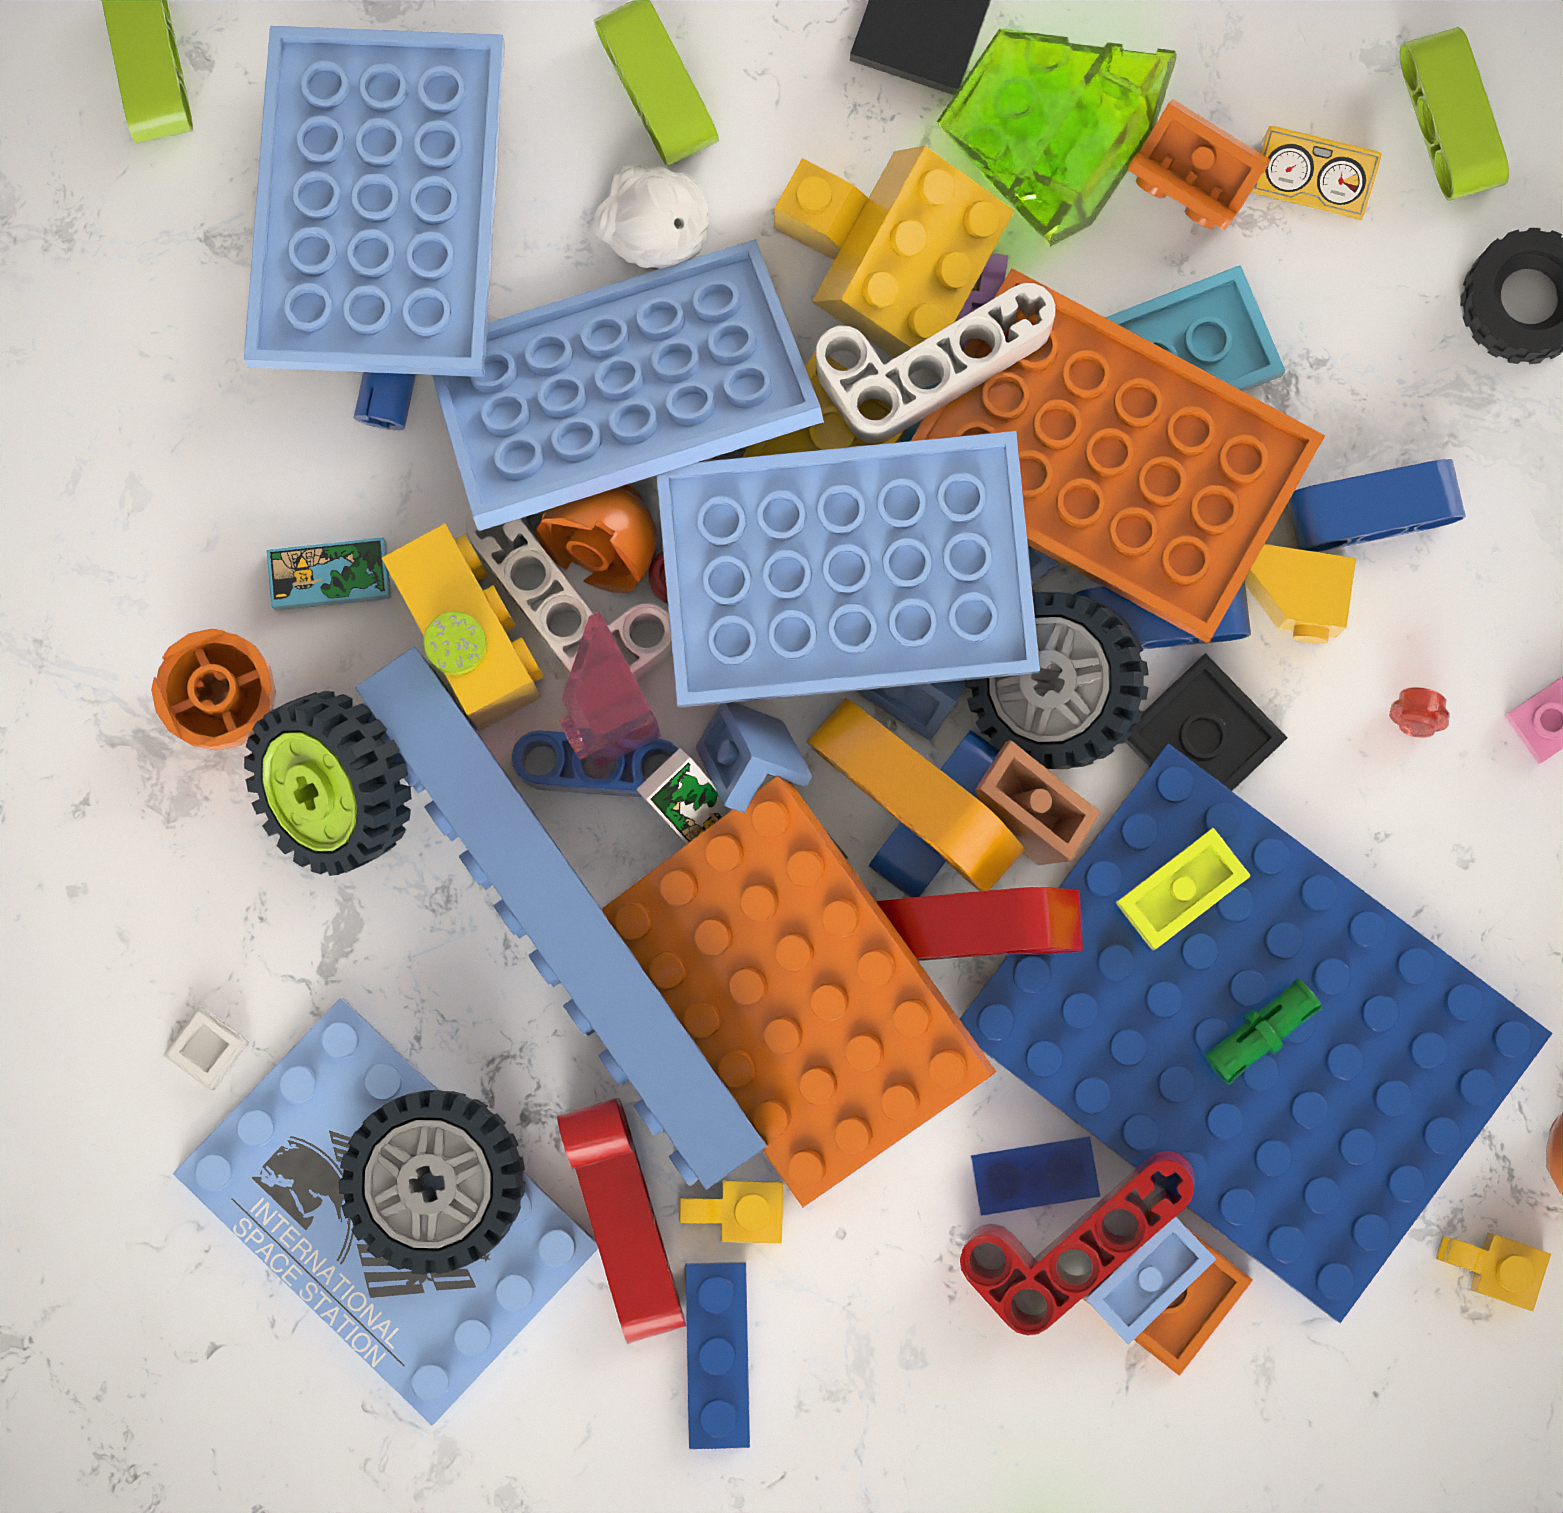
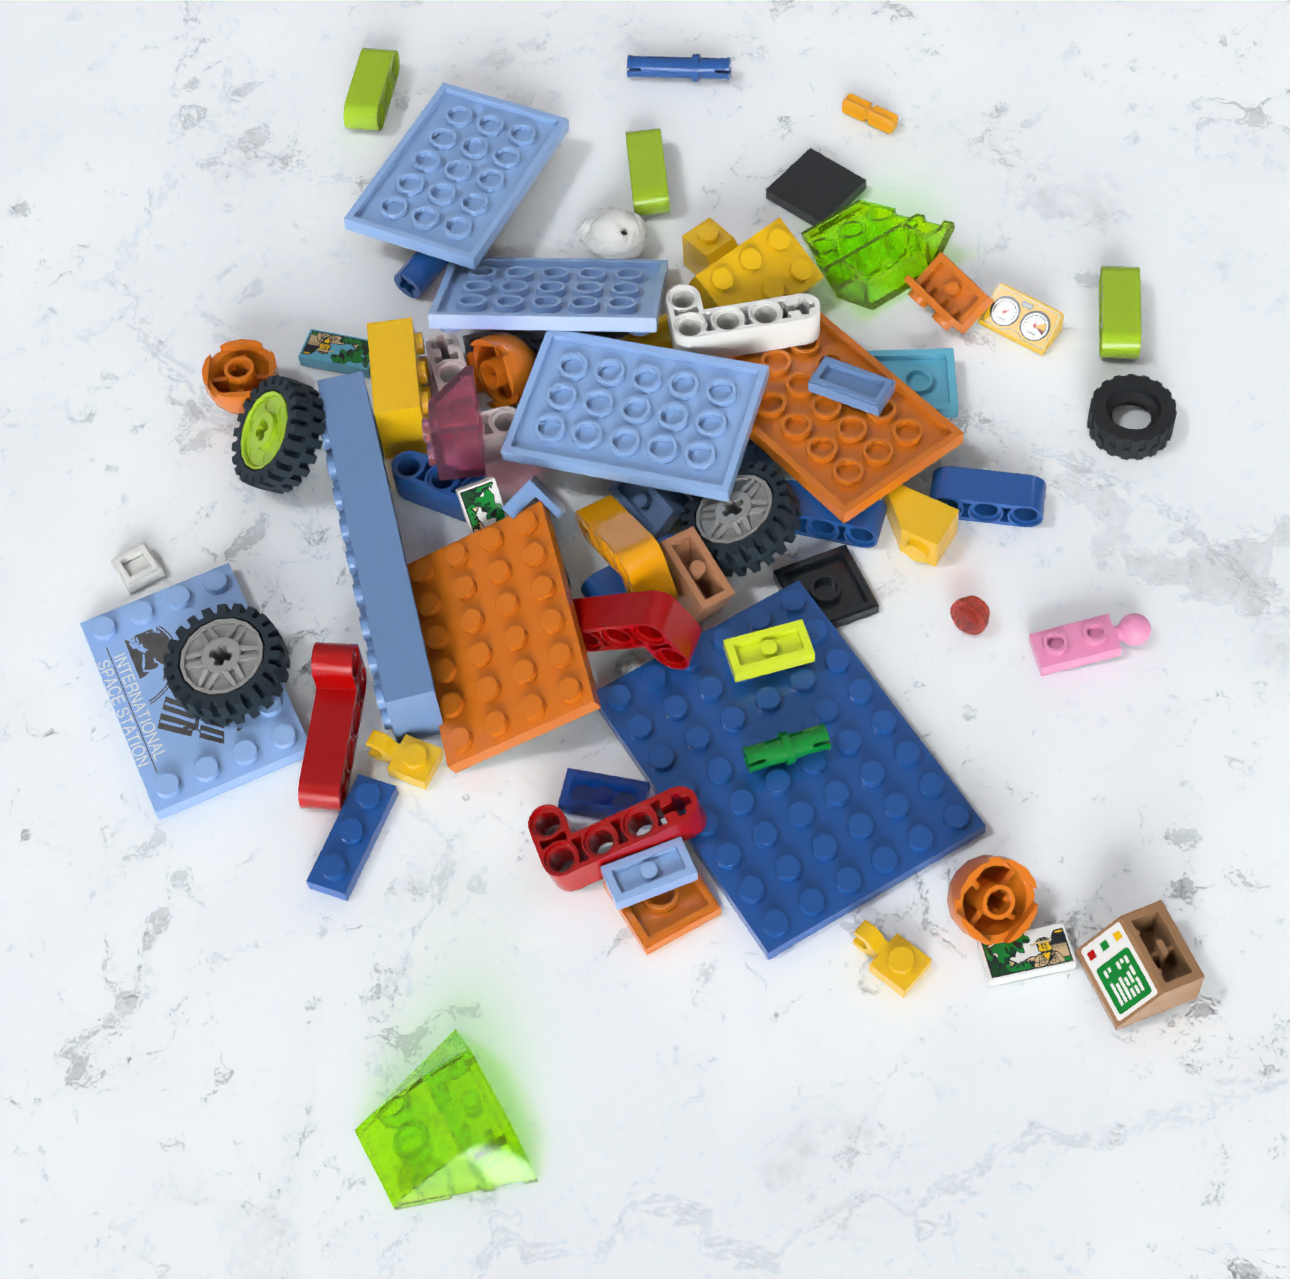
camera: 25 degrees right, 25 degrees down
(455, 643) = (385, 371): lime tile -> none
(1138, 409) = (851, 385): none -> medium blue tile

